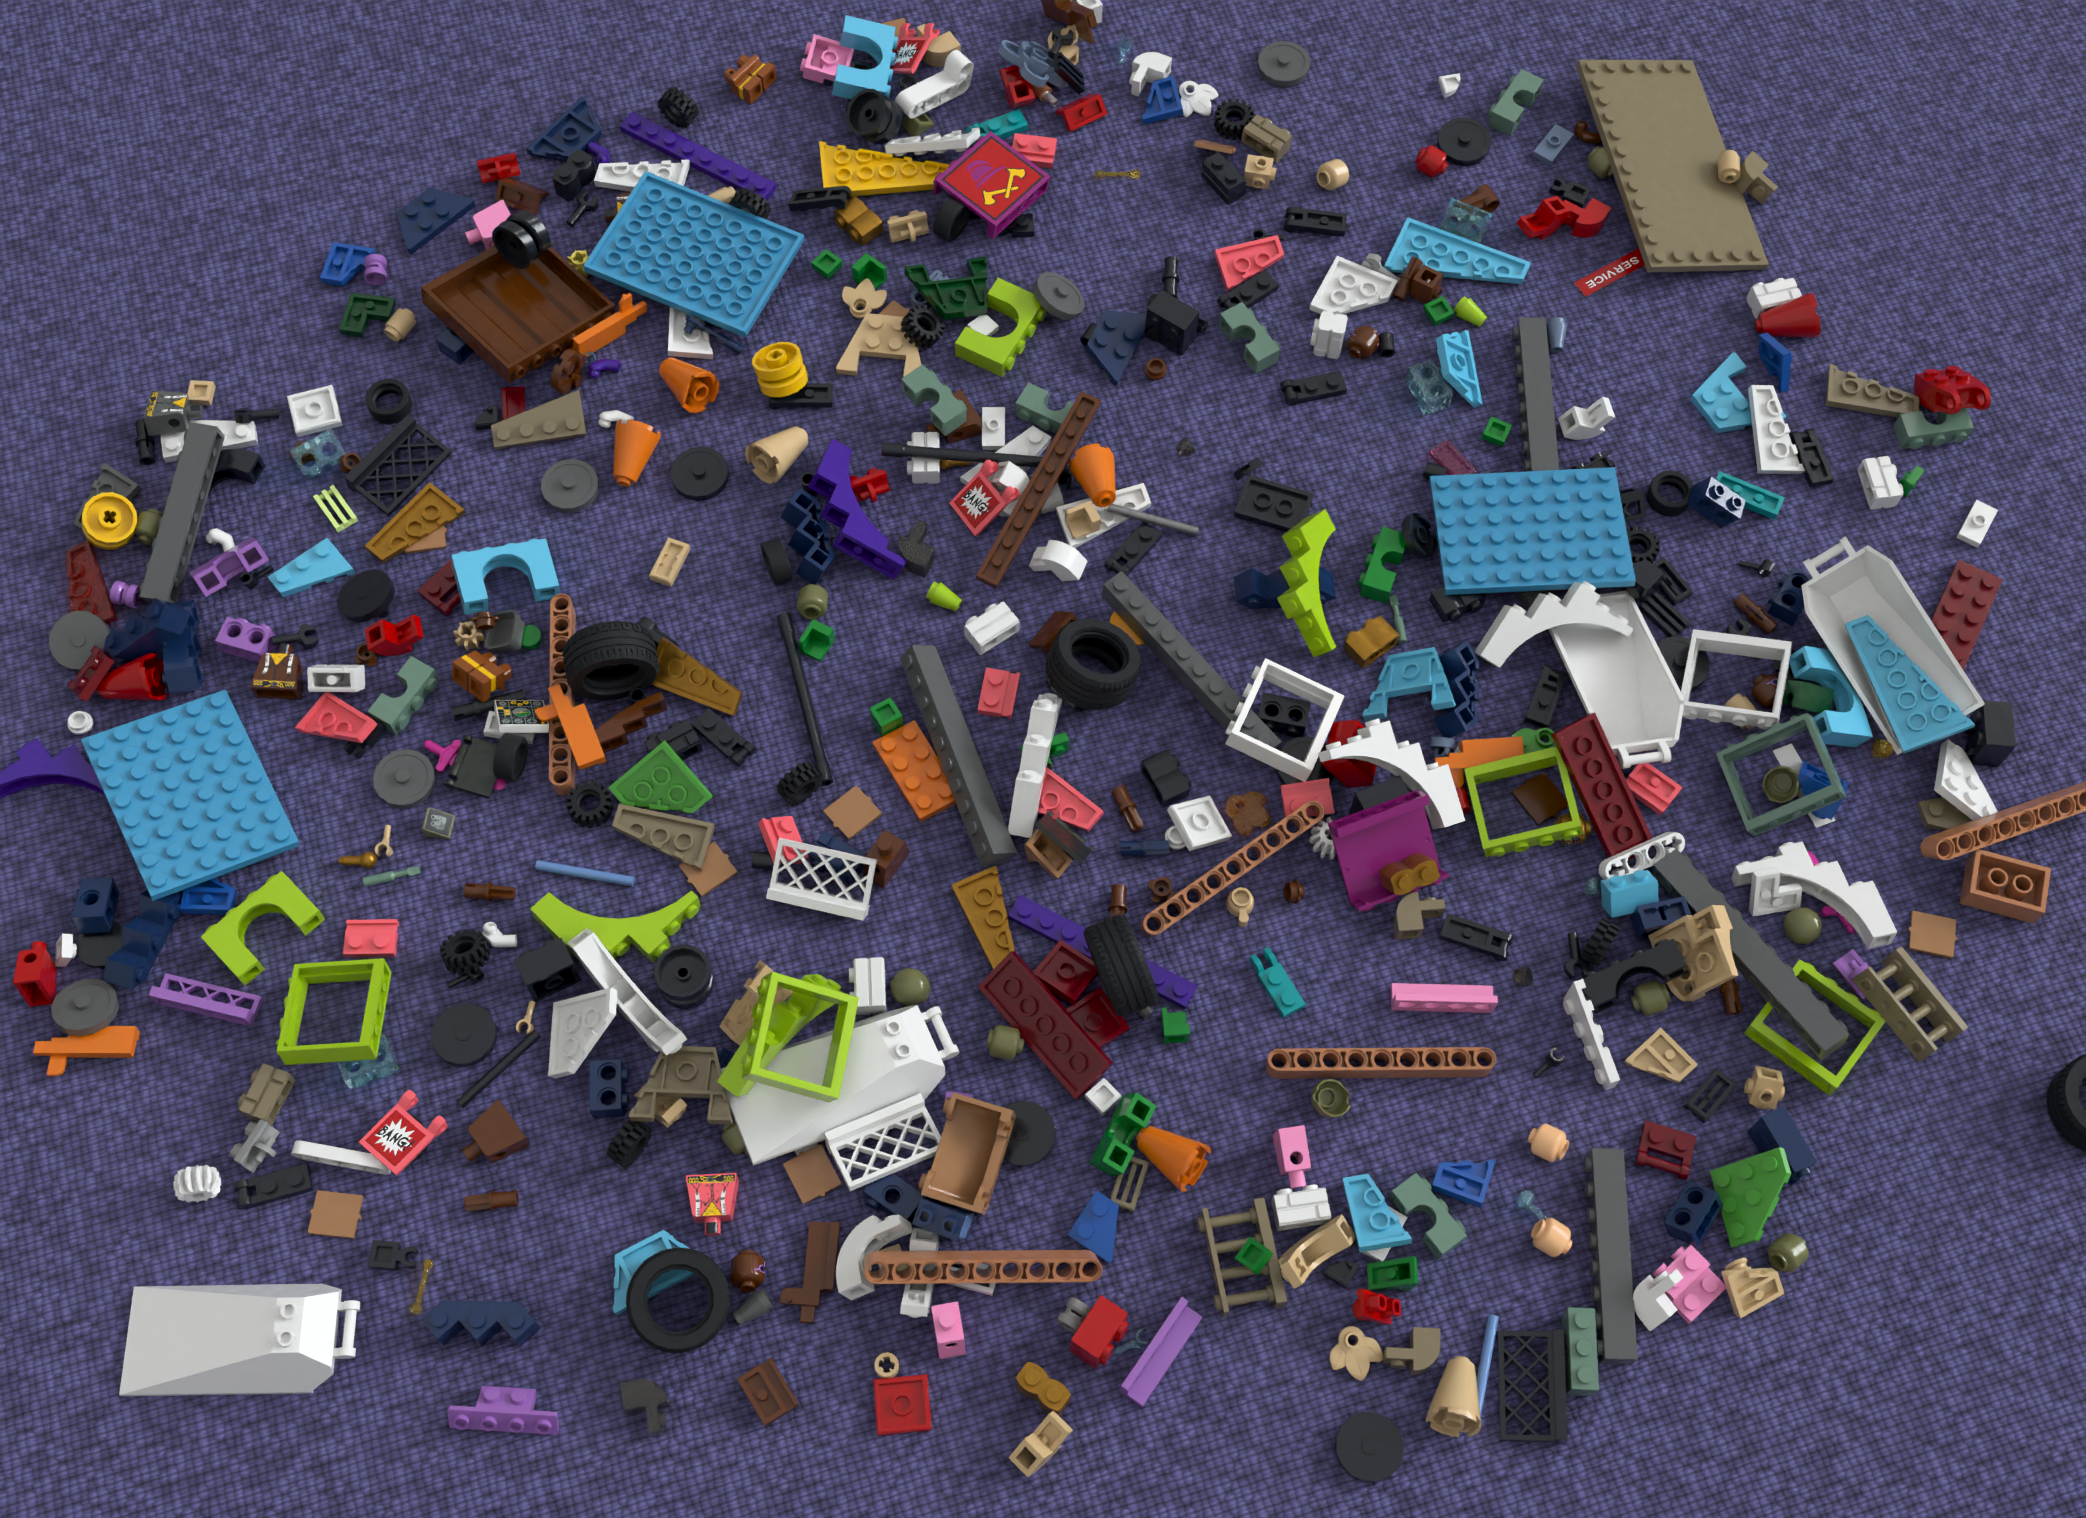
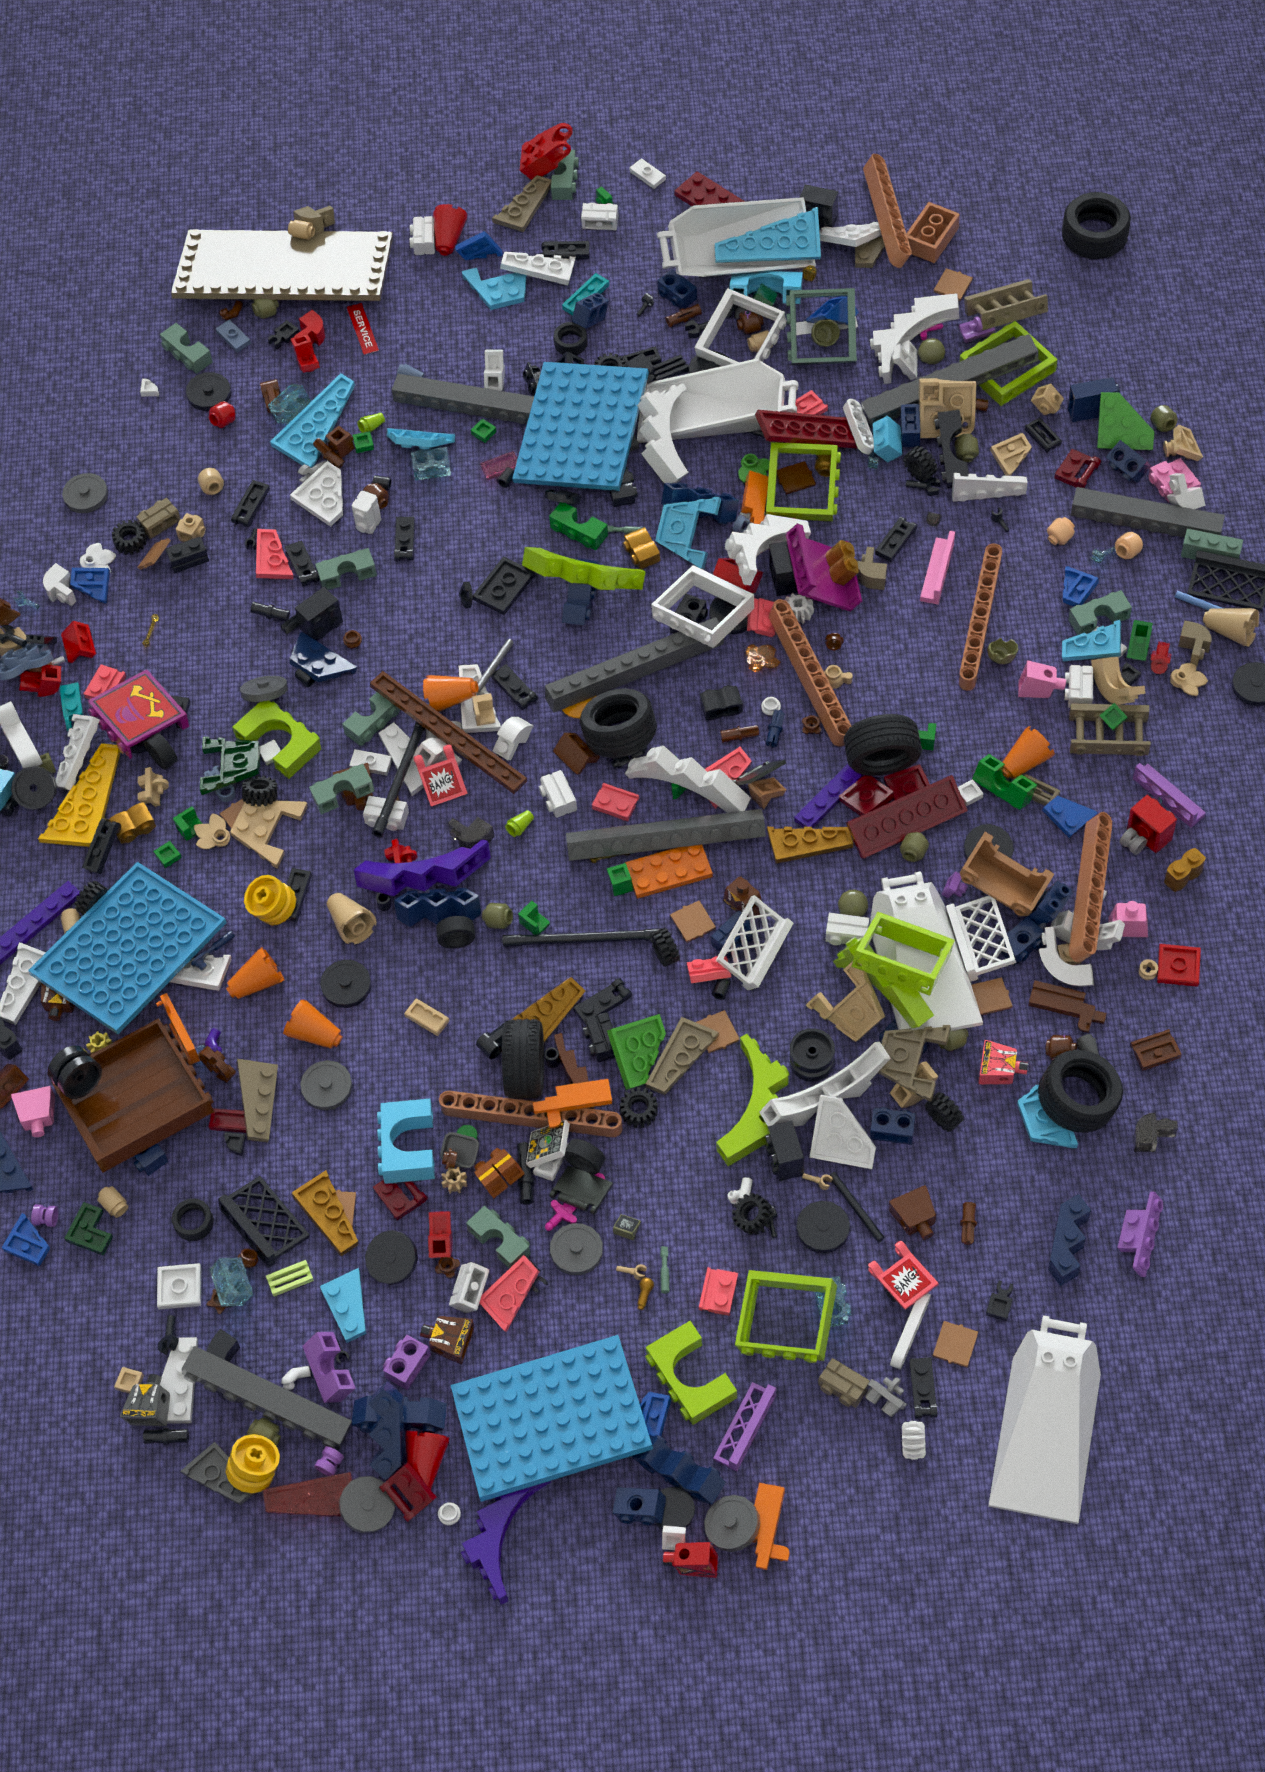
camera: 70 degrees left, 5 degrees down
(299, 637) = (415, 1319): black bar -> none
(416, 1307) = (1045, 1291): clear yellow hinge -> none
(489, 891) = (699, 1193): reddish brown axle -> none
(583, 207) = (34, 1037): black bar -> none
(584, 873) = (698, 1121): medium blue bar -> none
(615, 415) = (267, 1040): white arm -> none
(1041, 1444) = (1224, 878): tan brick -> none
(1118, 900) = (821, 755): reddish brown axle -> none
(1185, 447) = (433, 632): clear smoke hinge -> none
(1199, 823) = (764, 687): white tile -> none
(1277, 984) = (903, 667): teal hinge -> none
(1545, 697) = (716, 453): black plate -> none

